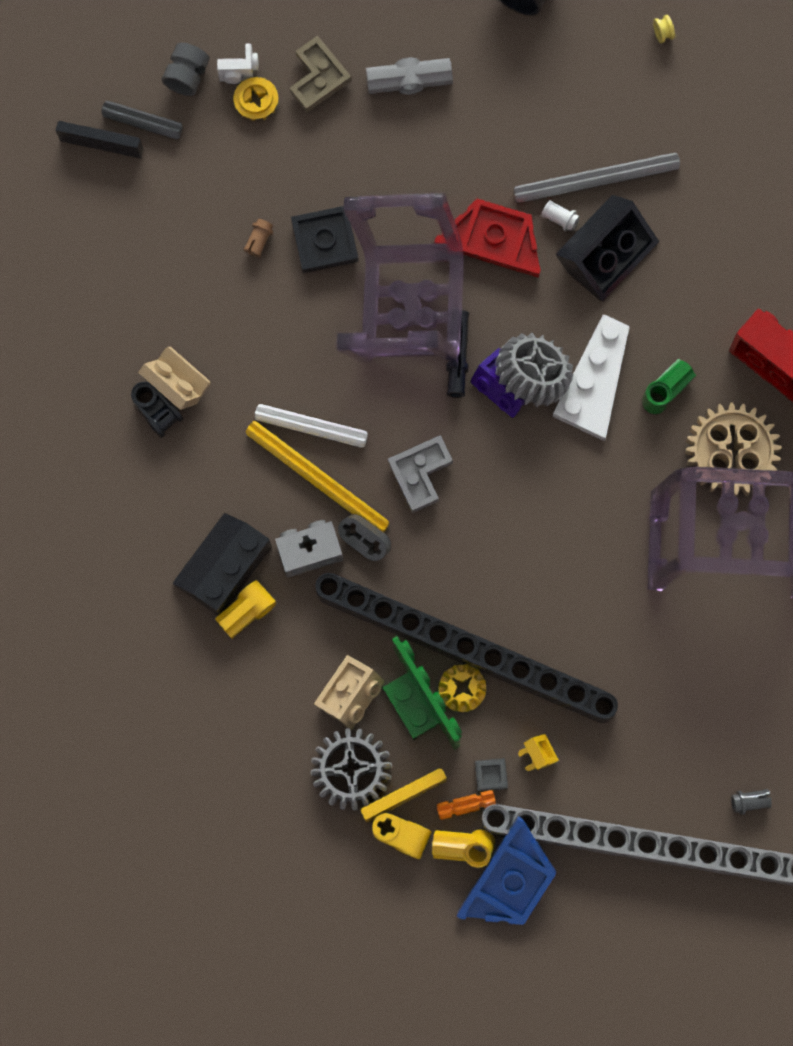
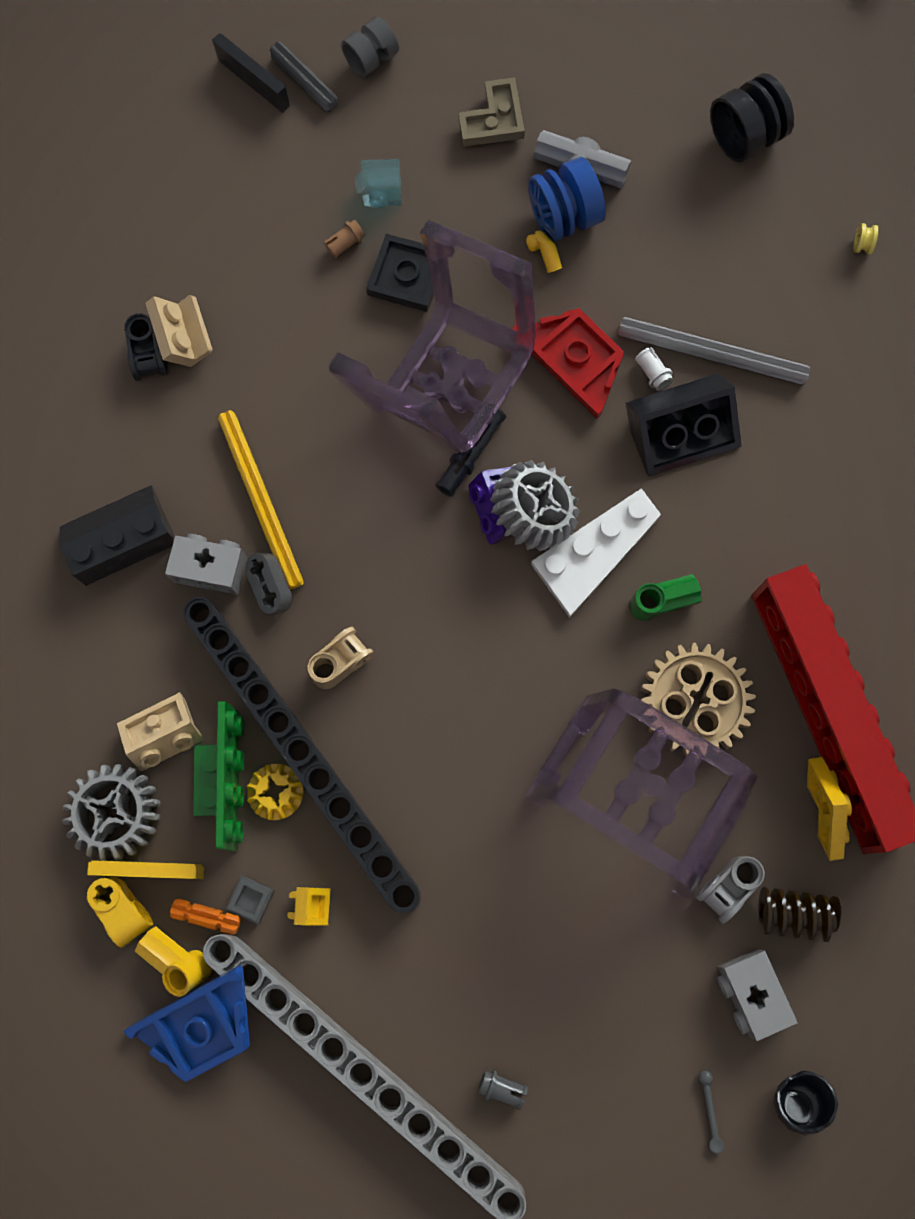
camera: 30 degrees right, 0 degrees up
(238, 70) = (421, 72): white bracket -> none
(251, 604) = (119, 589): yellow piece -> none
(261, 178) = (379, 182): none -> clear light blue brick
(262, 88) = (410, 104): yellow gear -> none
(311, 425) = (285, 445): white axle -> none
(412, 471) = (356, 541): light grey plate -> none
(420, 117) = (567, 199): none -> blue wheel
(431, 169) = (548, 250): none -> yellow arm
(453, 560) = (340, 657): none -> tan piece

